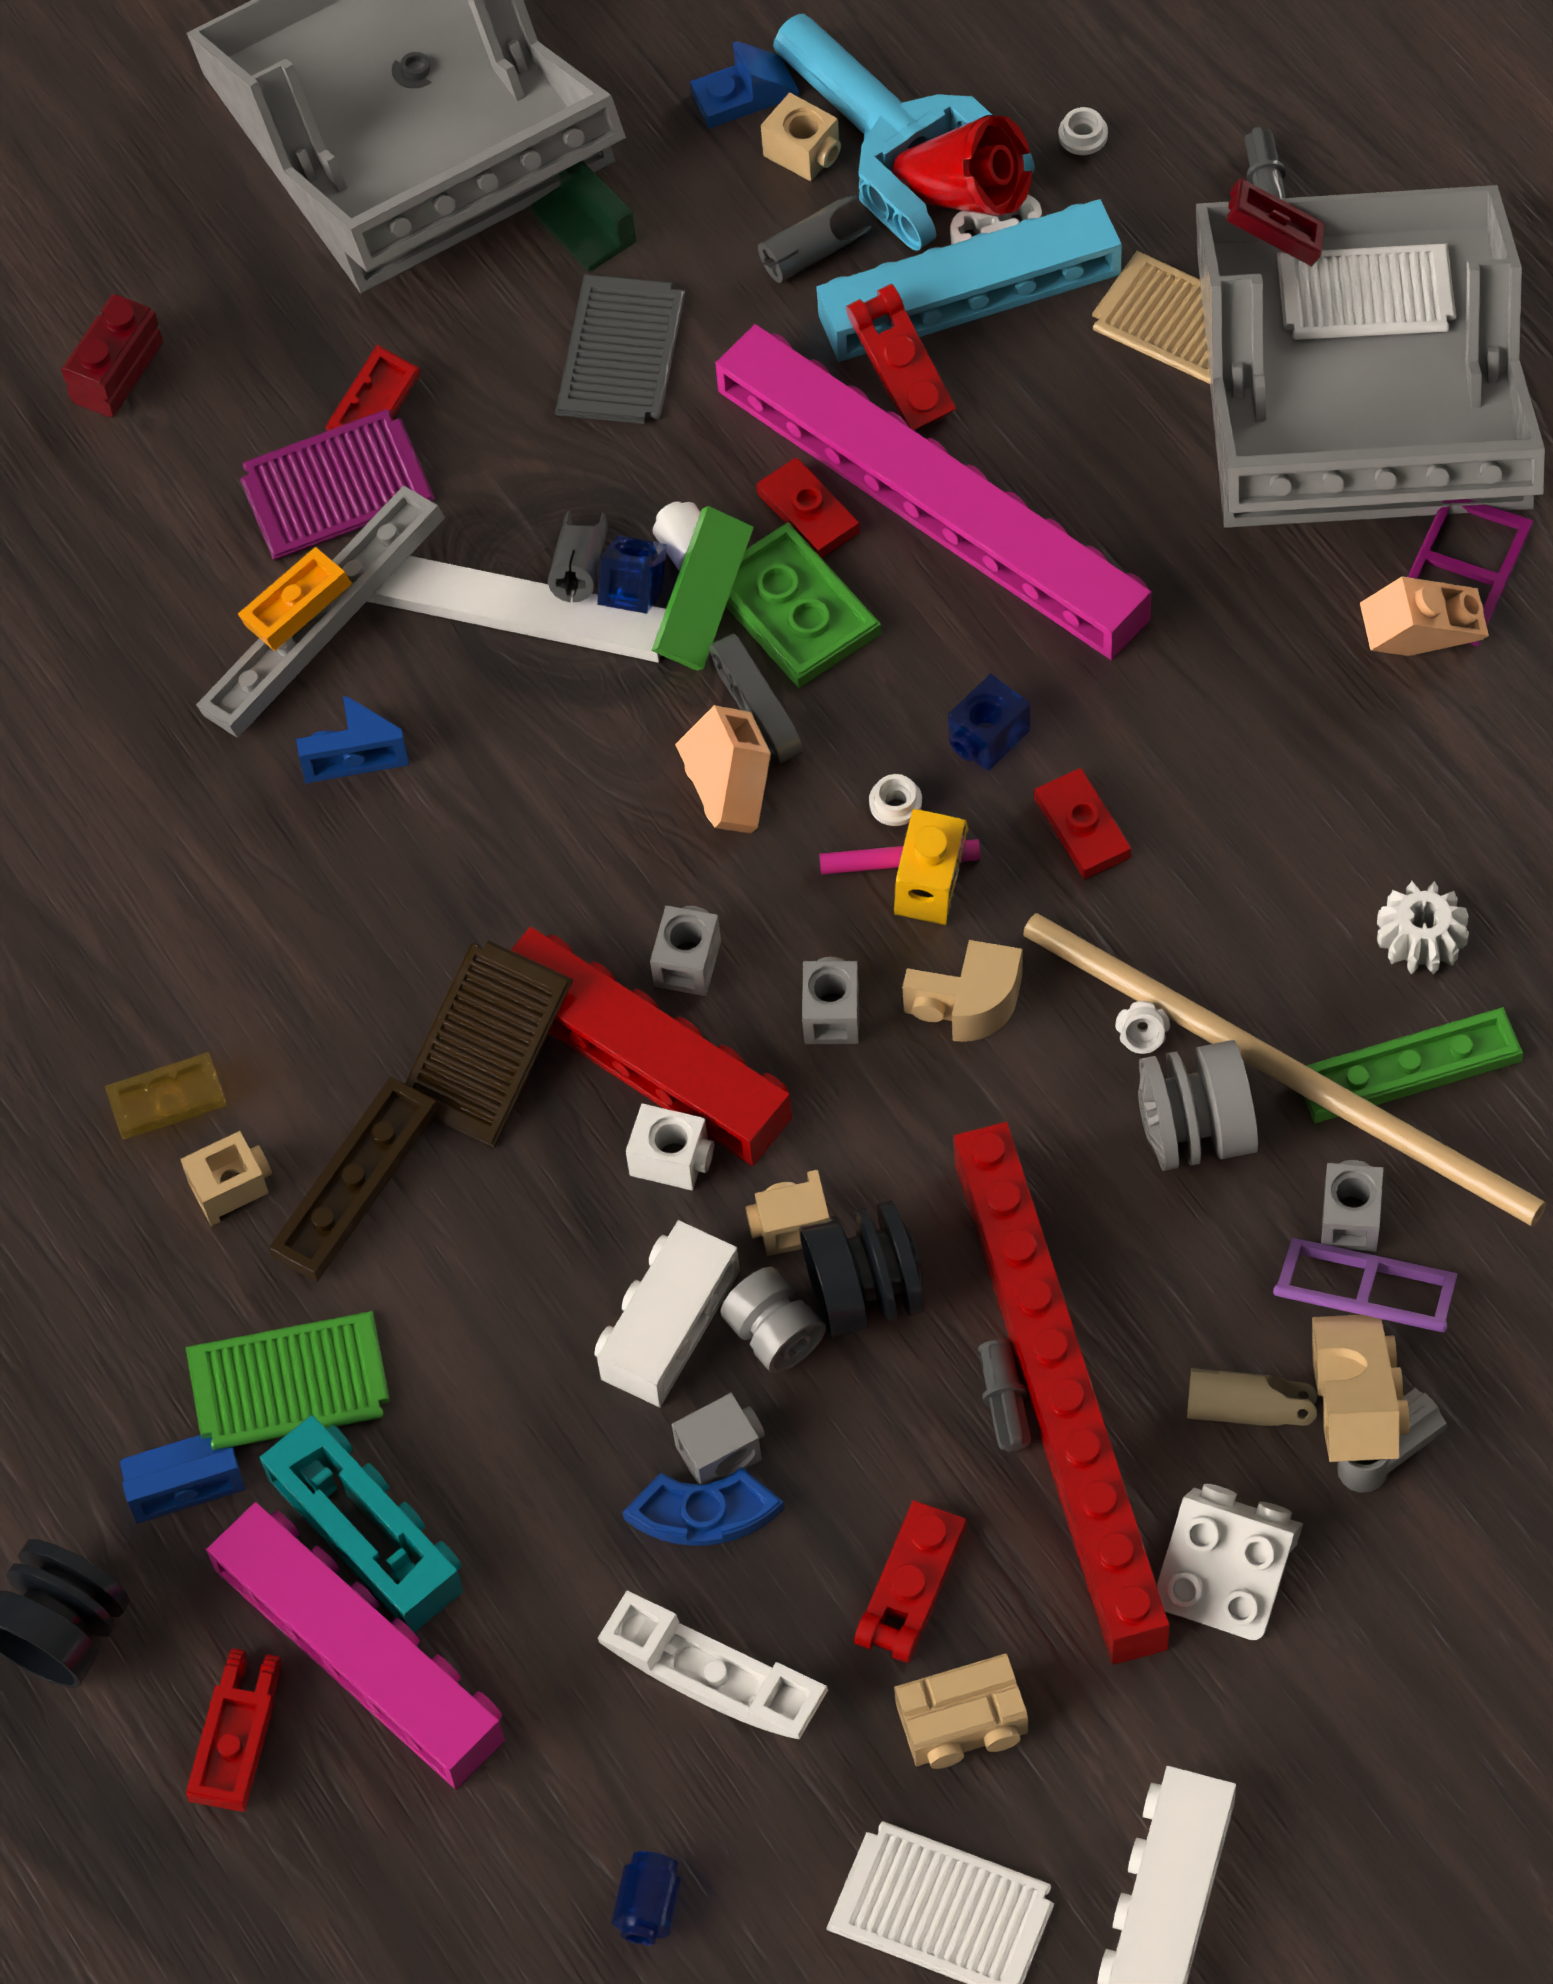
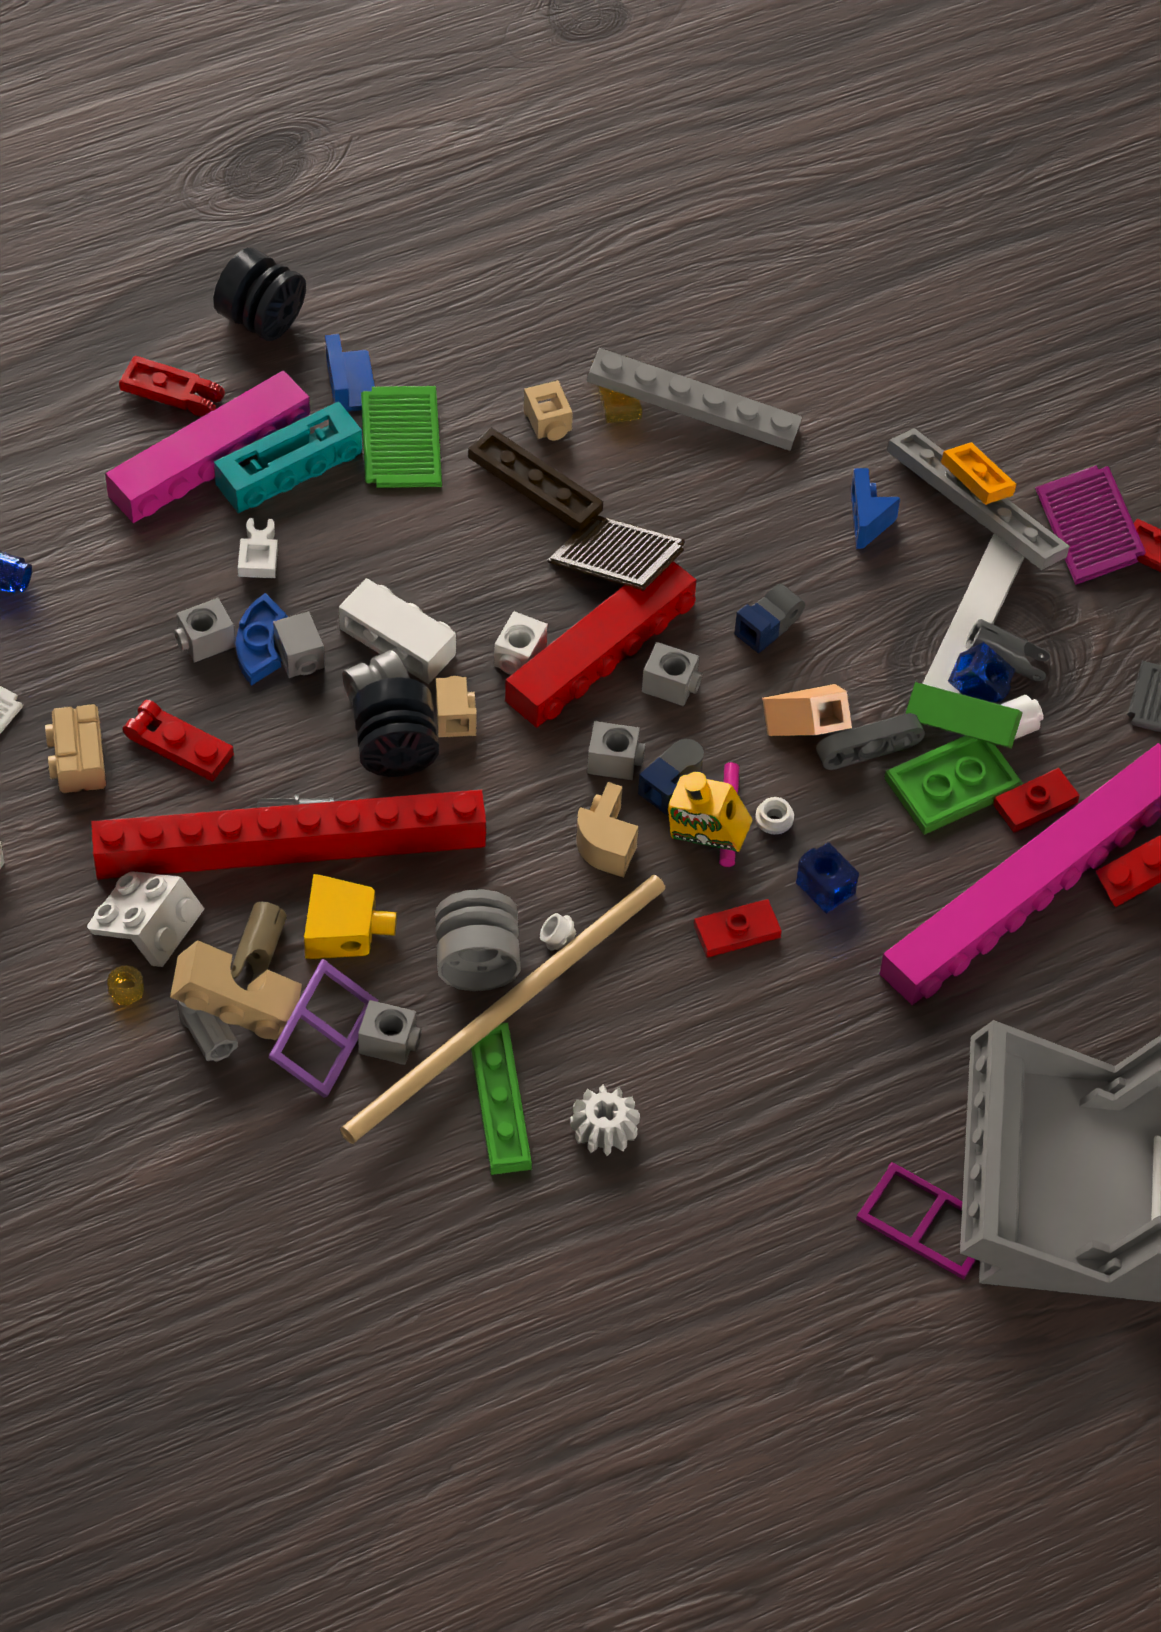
camera: 90 degrees right, 5 degrees down
(178, 988) = (694, 399): none -> light grey plate
(554, 1535) = (258, 552): none -> white plate
(563, 845) = (768, 617): none -> leg
(707, 1555) = (216, 628): none -> light grey brick
(710, 1671) = (147, 625): white slope -> none
(855, 928) = (661, 776): none -> leg
(1183, 1296) = (343, 919): none -> yellow torso
(1354, 1548) = (129, 995): none -> clear yellow axle
(1422, 617) = (874, 1172): light nougat slope -> none

